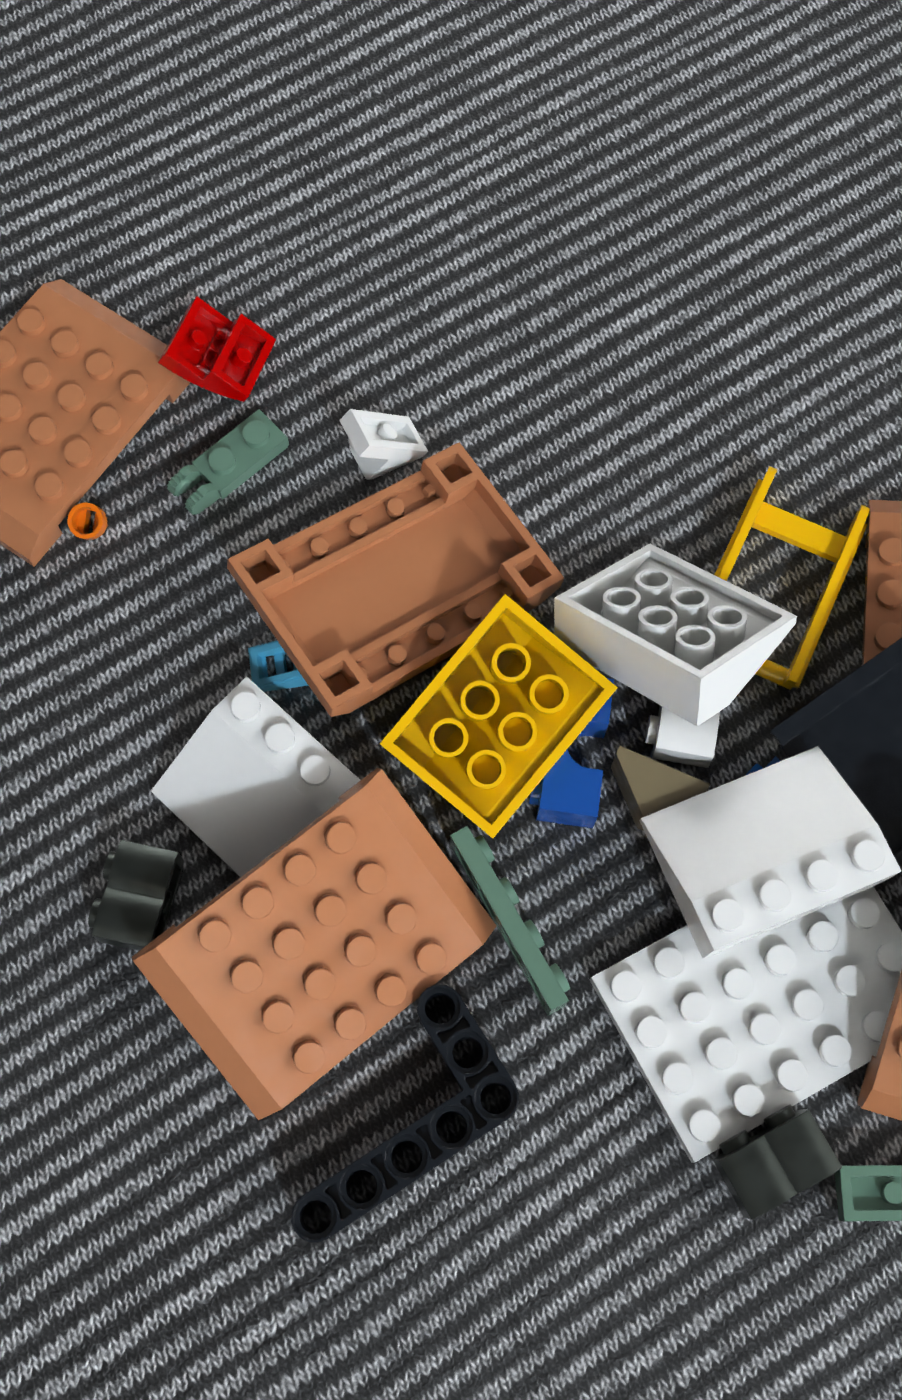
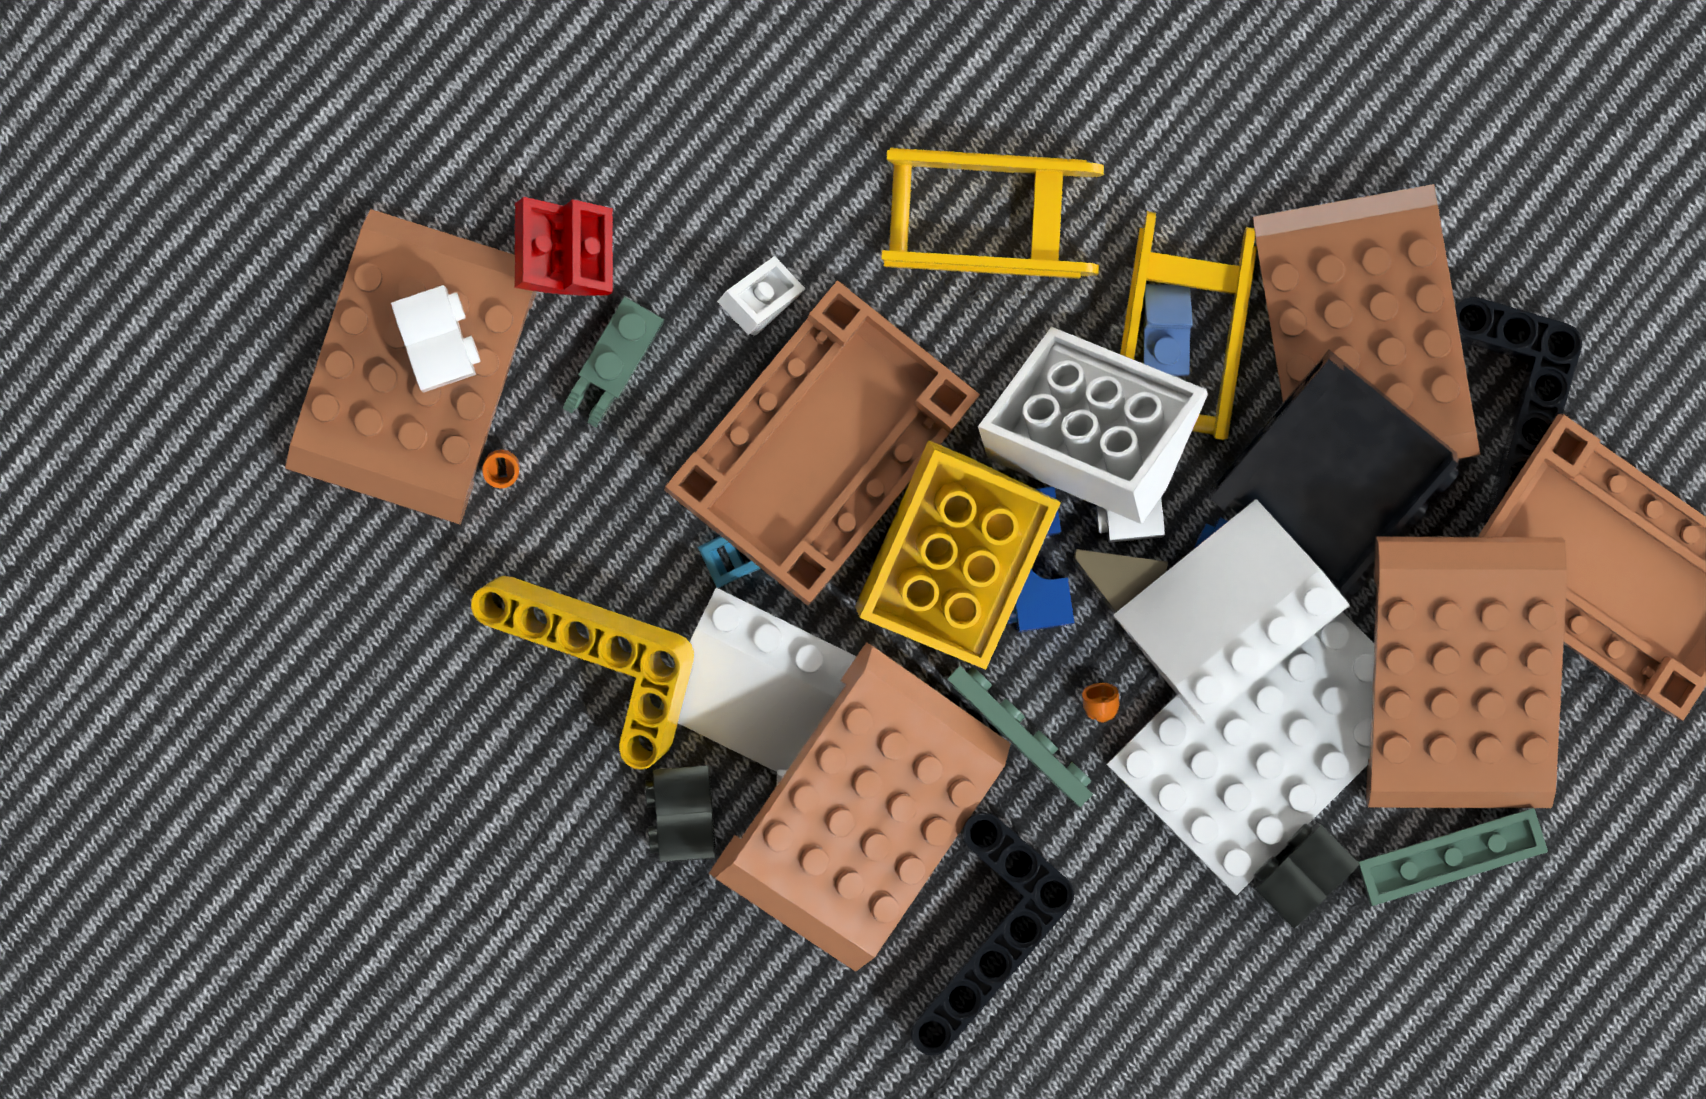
camera: 15 degrees left, 15 degrees up
(46, 647) = (602, 649): none -> yellow beam
(64, 377) = (435, 338): none -> white brick
(602, 911) = (1101, 701): none -> orange hinge
(683, 413) = (1045, 223): none -> yellow piece
(764, 567) = (1167, 328): none -> medium blue slope

